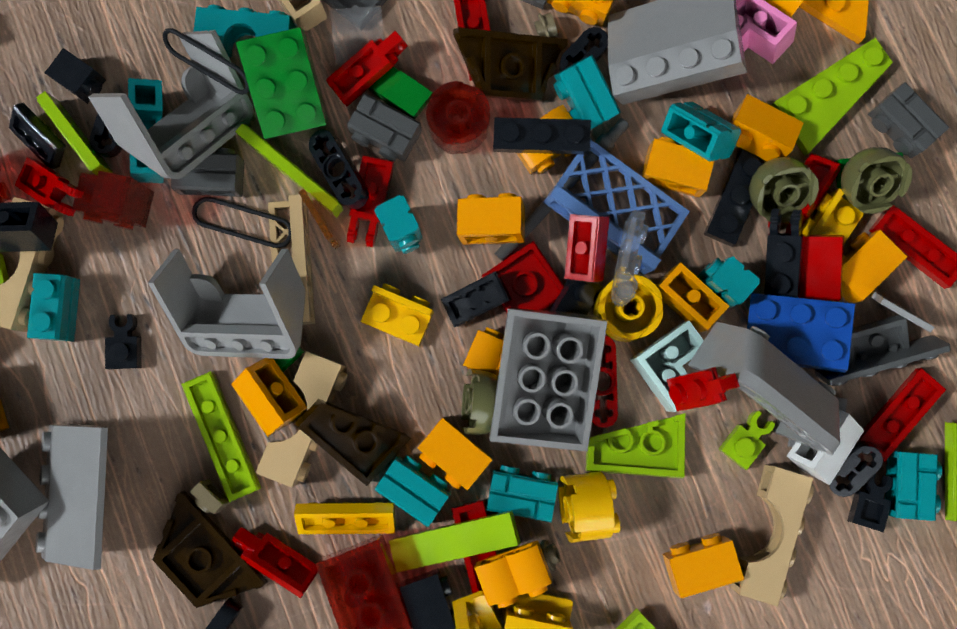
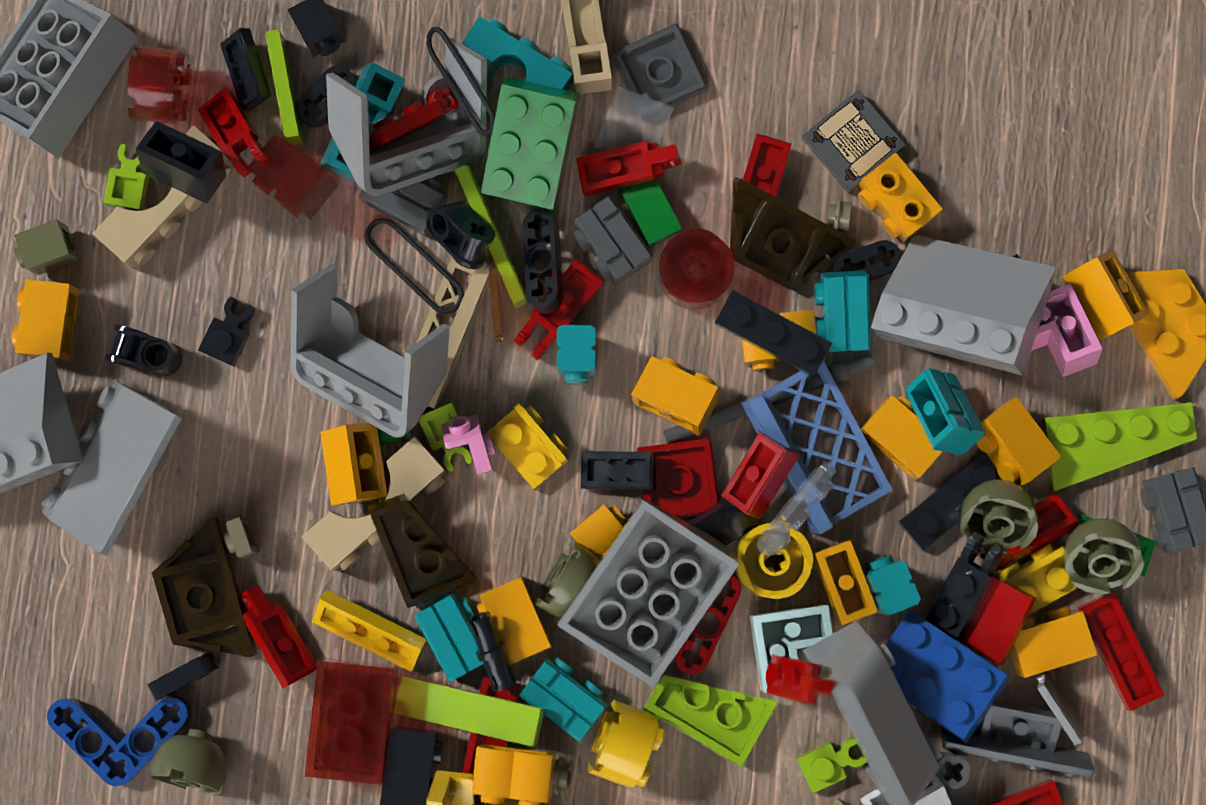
camera: 30 degrees right, 0 degrees up
(53, 307) = (177, 260): teal brick -> none
(59, 391) = (138, 350): none -> black piece
(182, 109) = (415, 118): none -> red hinge
(221, 436) = (282, 480): lime tile -> none
(263, 177) = (460, 232): none -> black piece
(327, 335) = (431, 425): none -> lime plate
(344, 325) = (467, 430): none -> bright pink bracket
(448, 487) = (491, 651): none -> black pin
(850, 396) = (961, 770): none -> light grey bush

